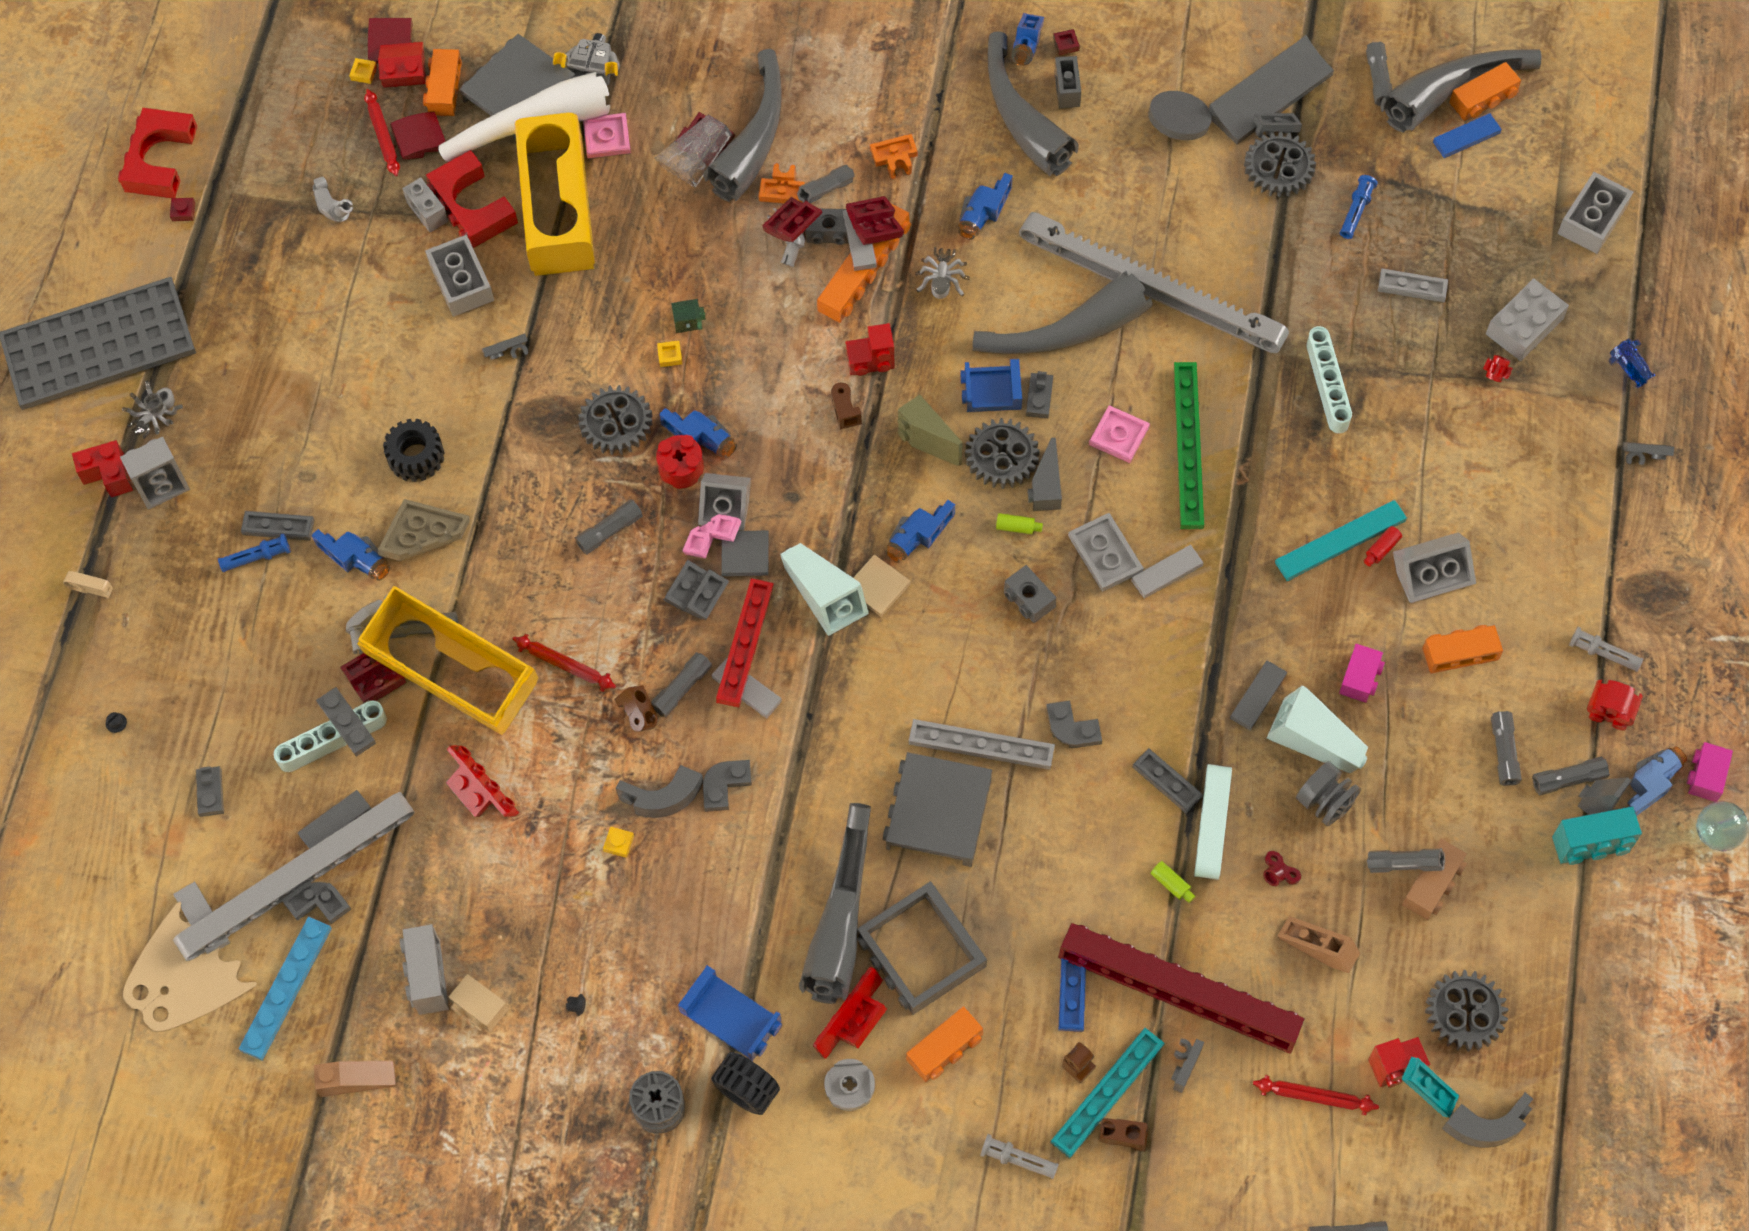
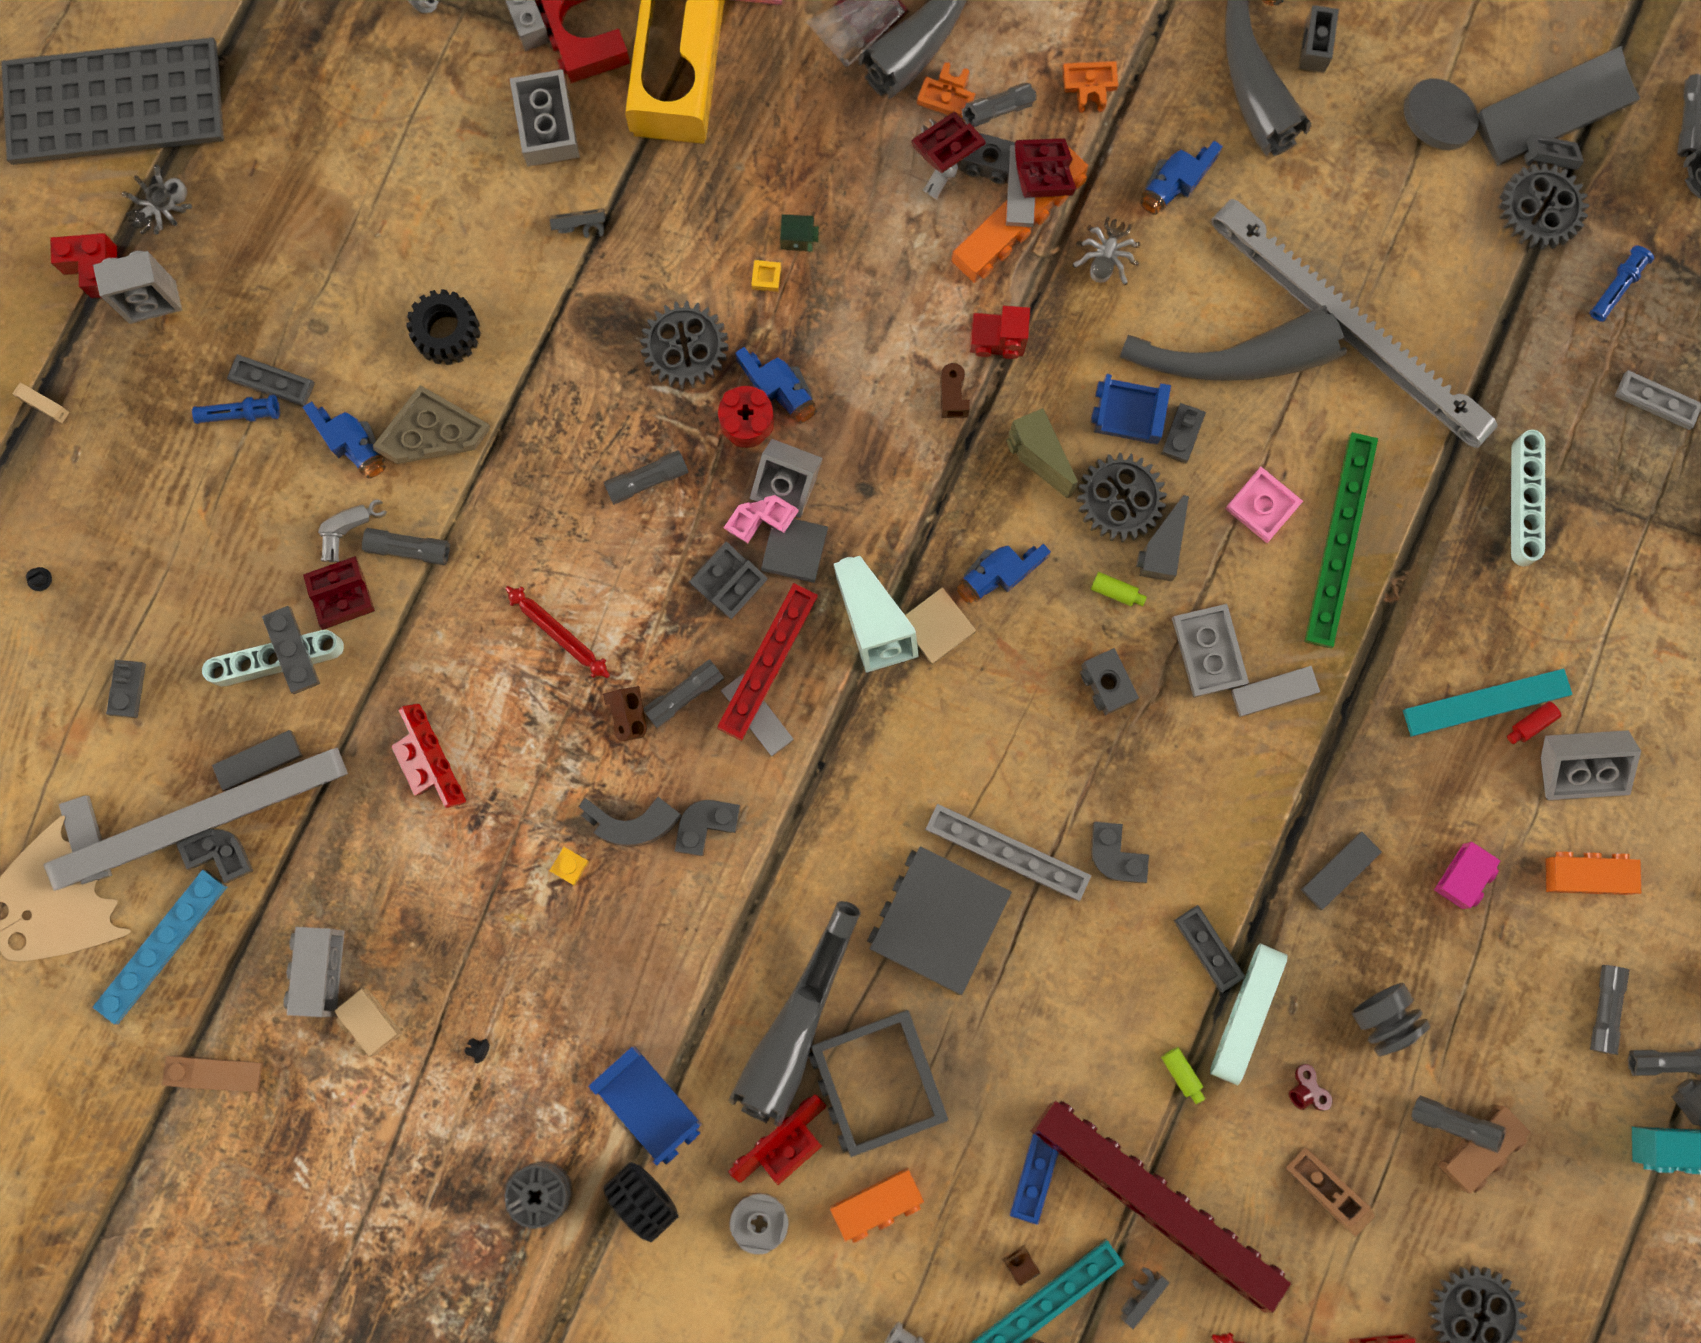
camera: 10 degrees right, 15 degrees up
(457, 644) = (344, 569): yellow piece -> none
(1315, 731) = (1391, 930): light aqua slope -> none

